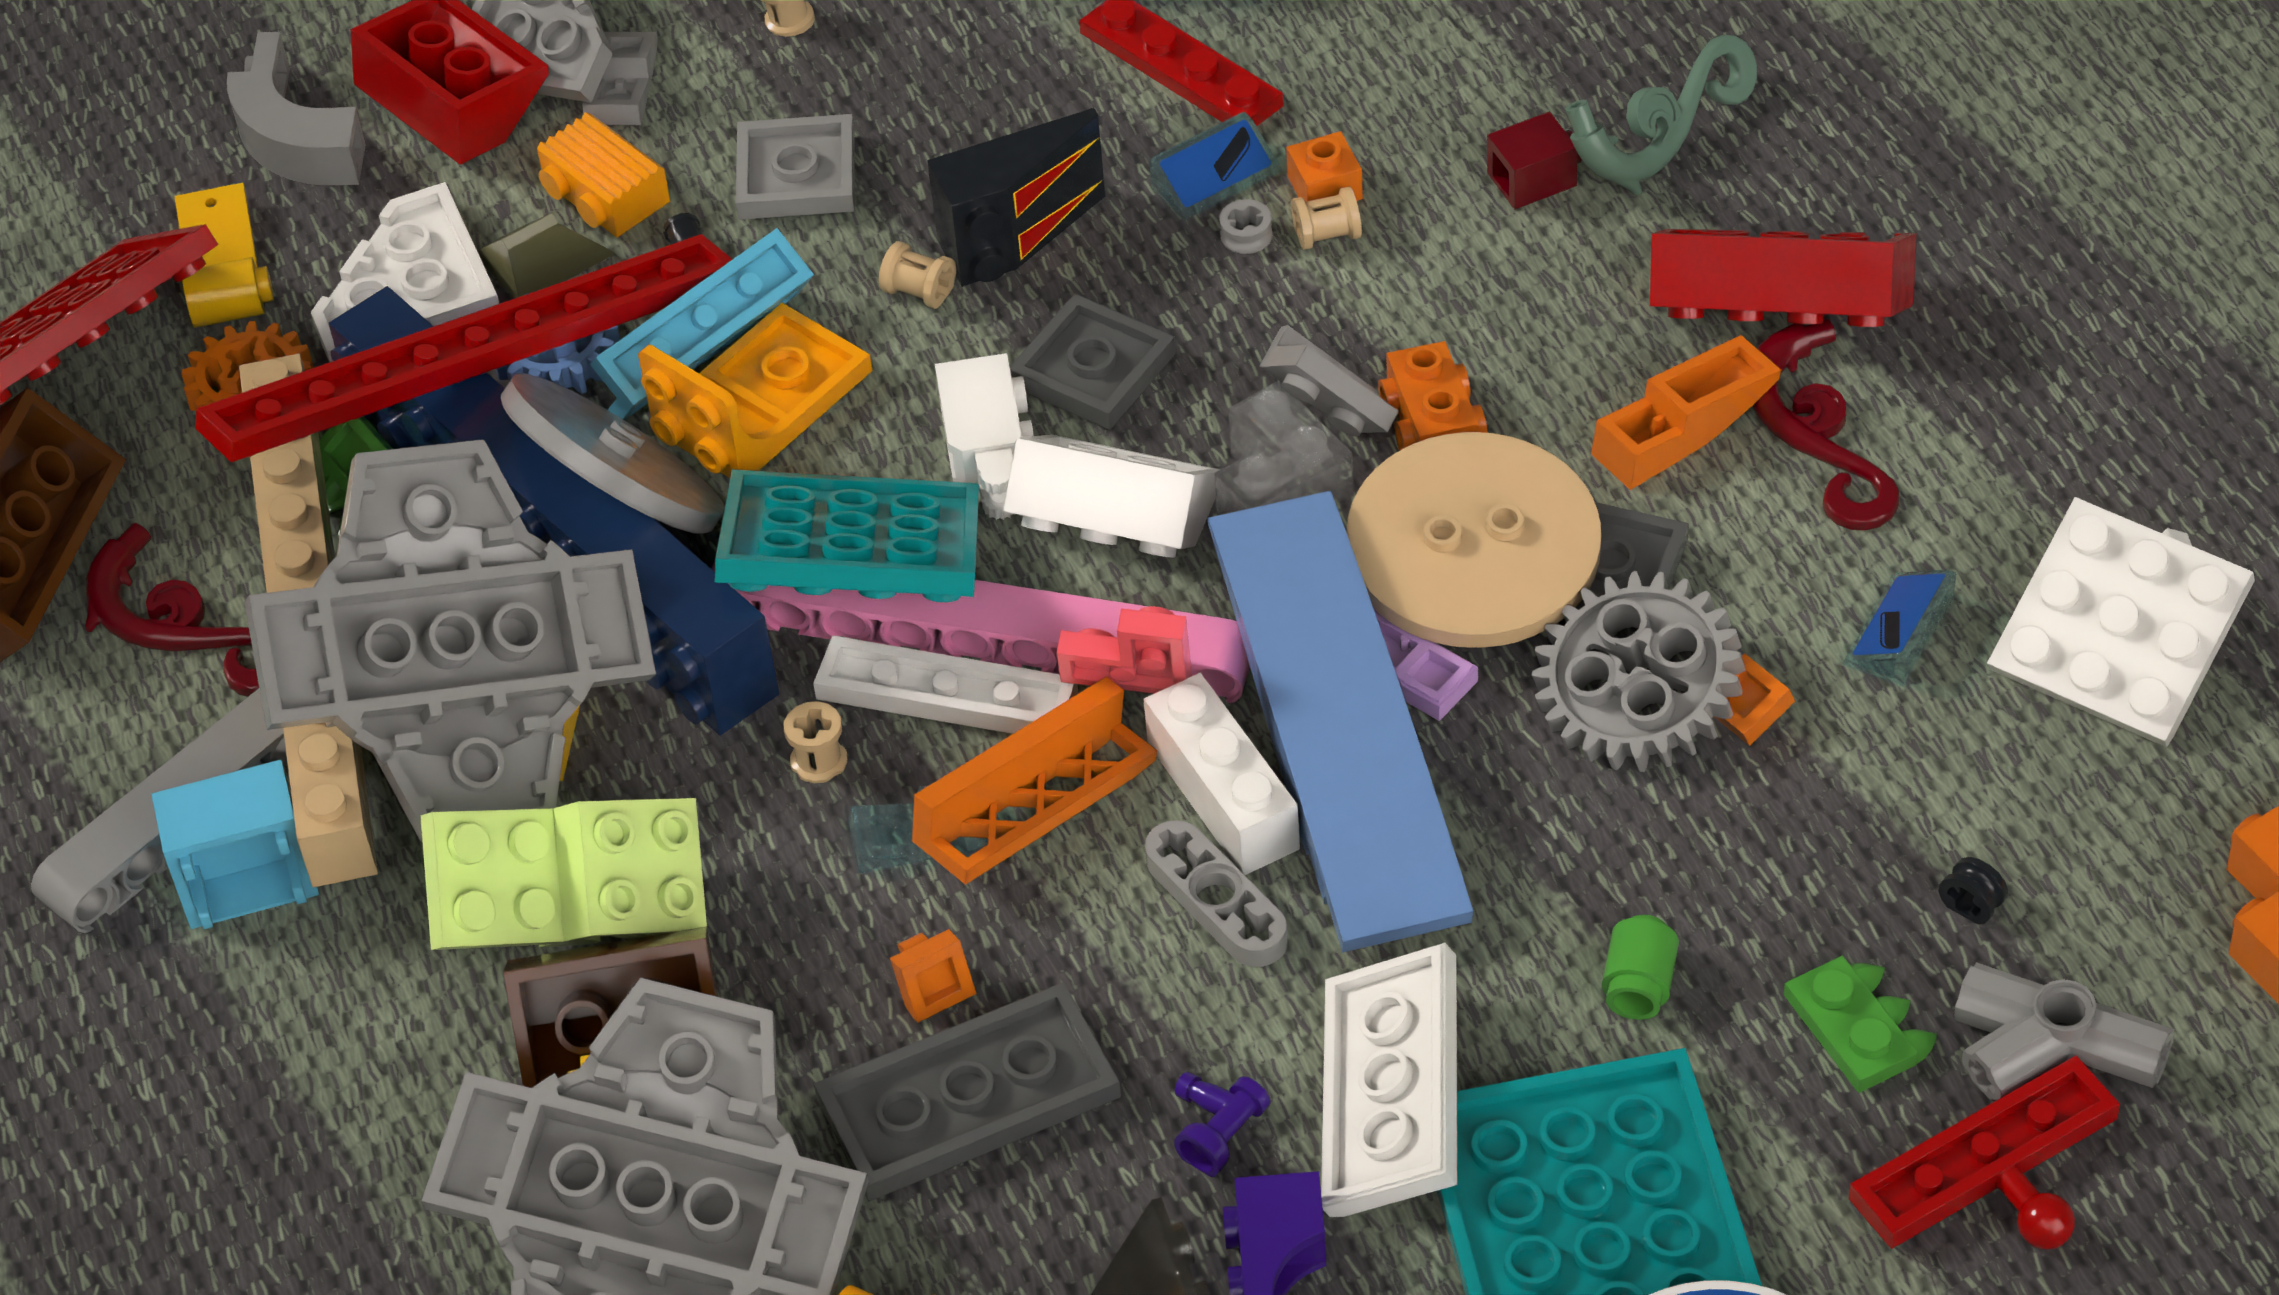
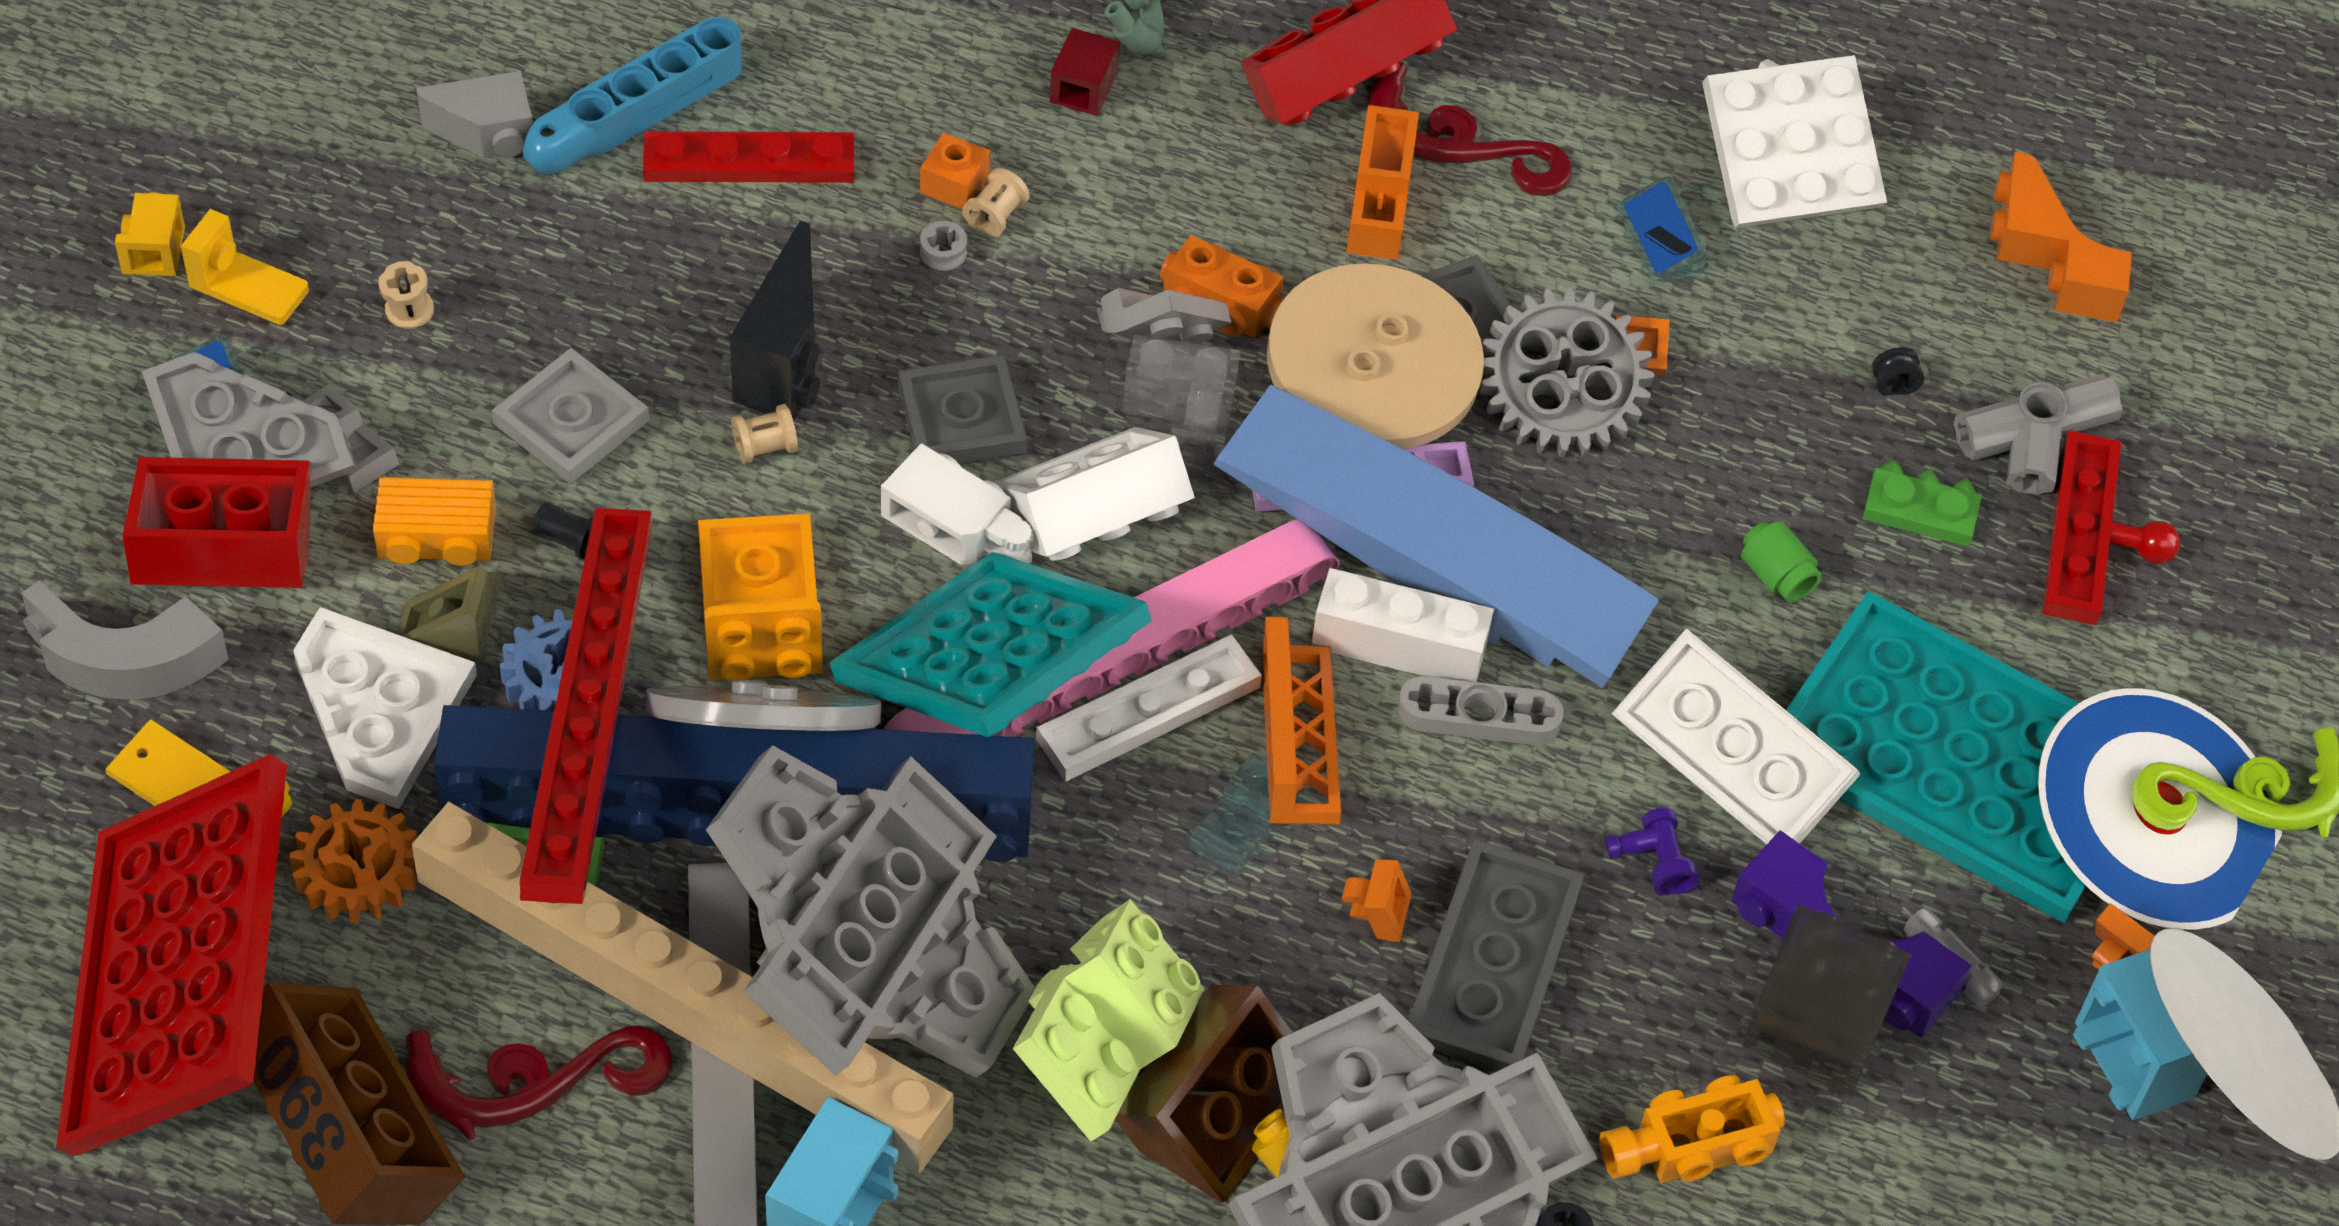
camera: 55 degrees left, 5 degrees up
(706, 317) = (677, 575): medium azure fence -> none
(802, 735) = (1116, 805): tan bush -> none
(1144, 656) = (1295, 581): coral plate -> none
(1212, 166) = (871, 219): slope -> none

